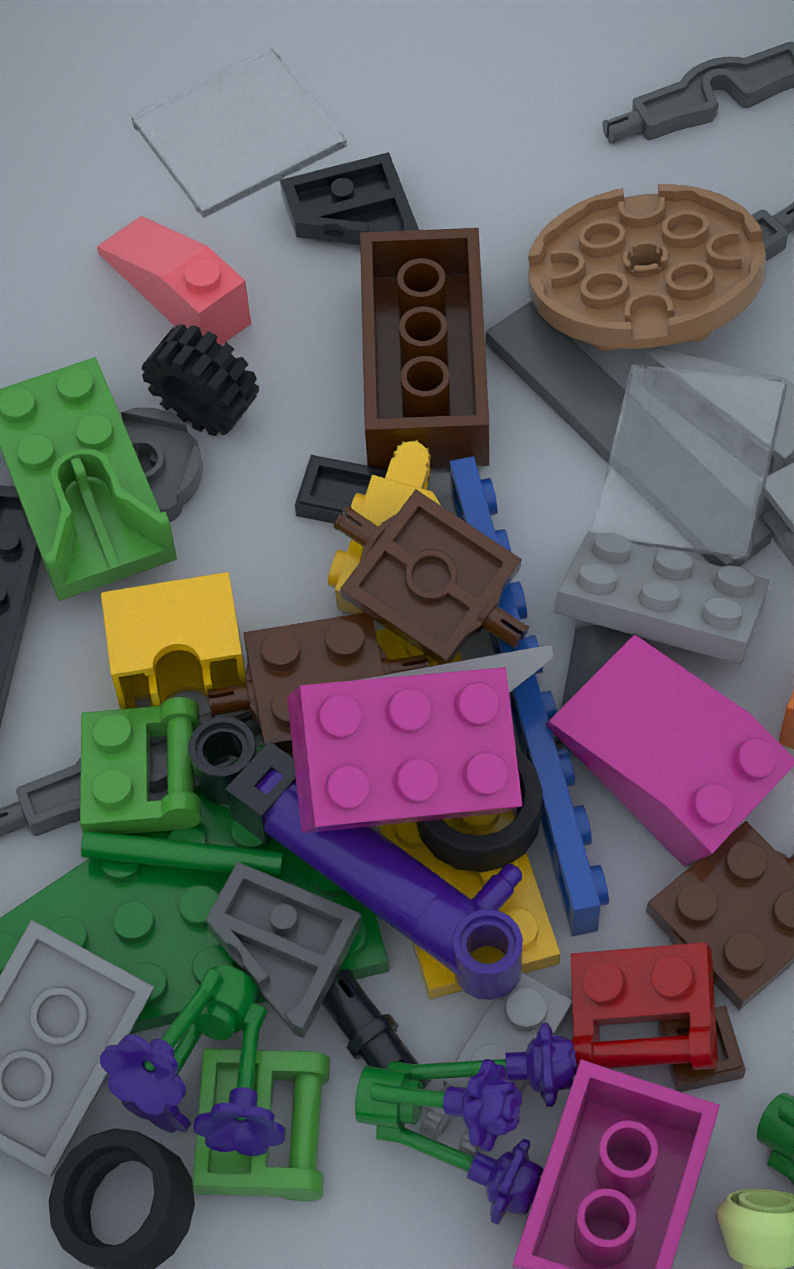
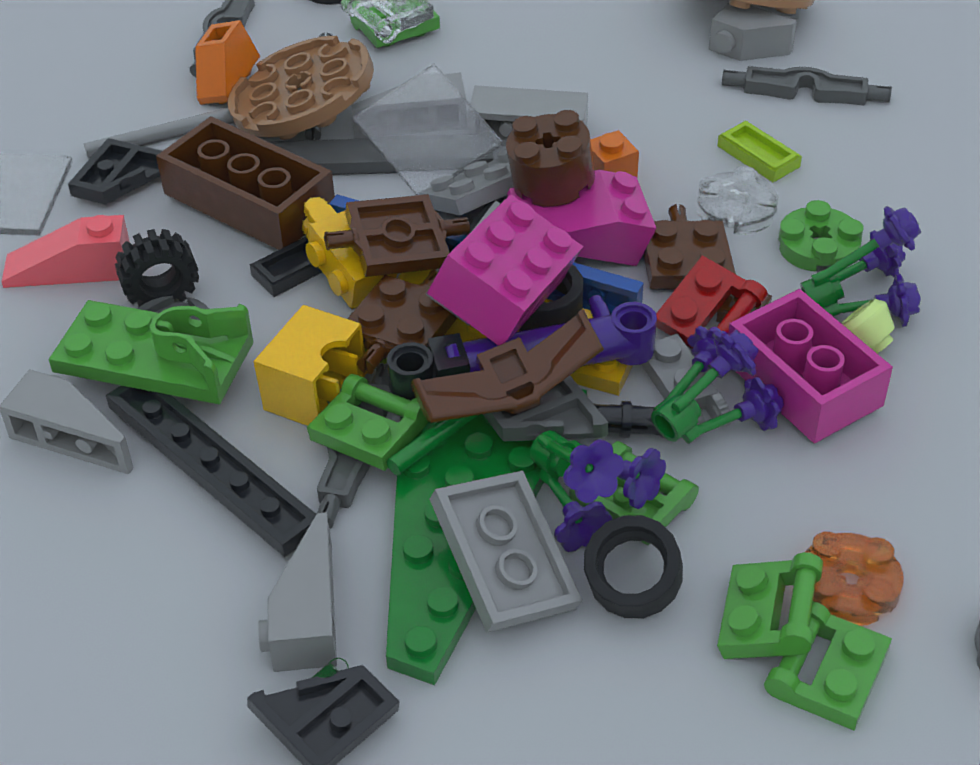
camera: 55 degrees left, 15 degrees down
(274, 875) = (510, 375): none -> reddish brown plate
(460, 184) = (160, 131): none -> light grey bar
(625, 147) = (222, 59): none -> orange slope
(686, 649) = (550, 157): none -> reddish brown brick

